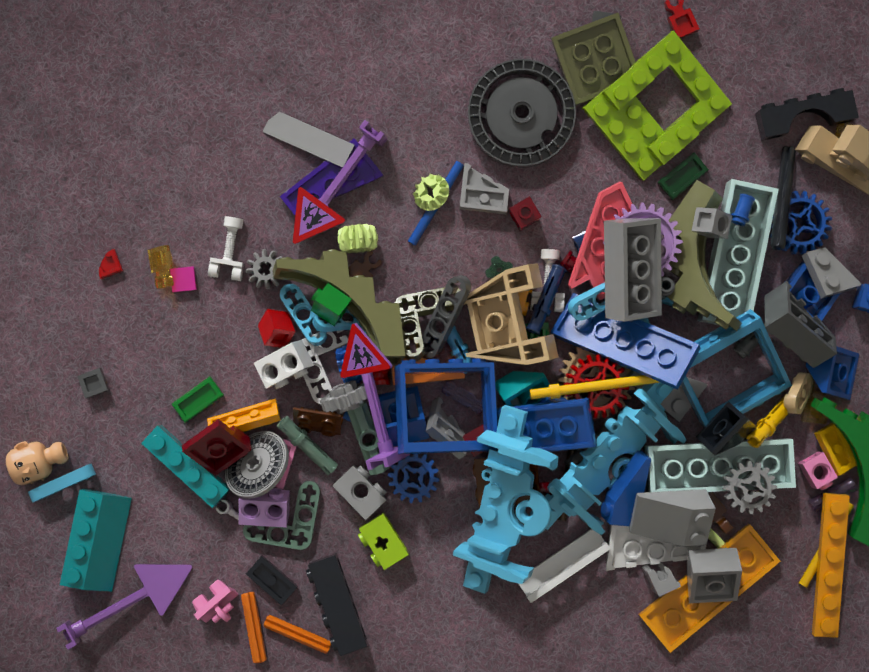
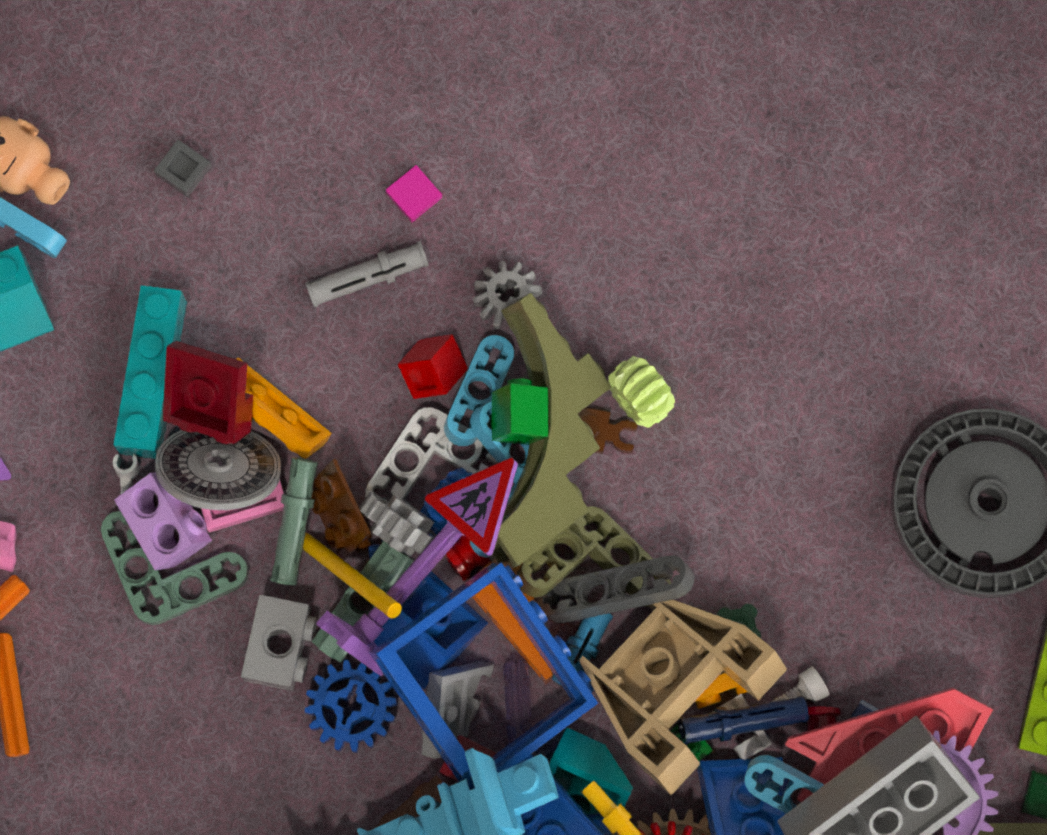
camera: 55 degrees right, 10 degrees down
(110, 265) = (365, 82): red tile -> none
(161, 263) = (413, 147): clear yellow plate -> none
(197, 399) = (256, 326): green tile -> none
(208, 329) = (367, 274): none -> light grey pin
(232, 225) = (538, 210): white bar -> none
(271, 580) = (64, 603): black plate -> none
(283, 362) = (391, 405): white brick -> none
(309, 138) = (734, 232): light grey sticker -> none
(313, 214) = (632, 309): medium lavender piece -> none
(322, 176) = (703, 302): dark purple wing -> none
(338, 604) = (89, 722): black brick -> none
(354, 437) = (351, 577): none -> yellow bar
(395, 547) = (246, 712): lime brick -> none
(428, 215) = (771, 470): blue bar -> none
(440, 192) = (788, 464): yellowish green gear -> none
(482, 193) = (831, 526): light grey wing -> none
(524, 213) = (845, 605): dark red brick -> none

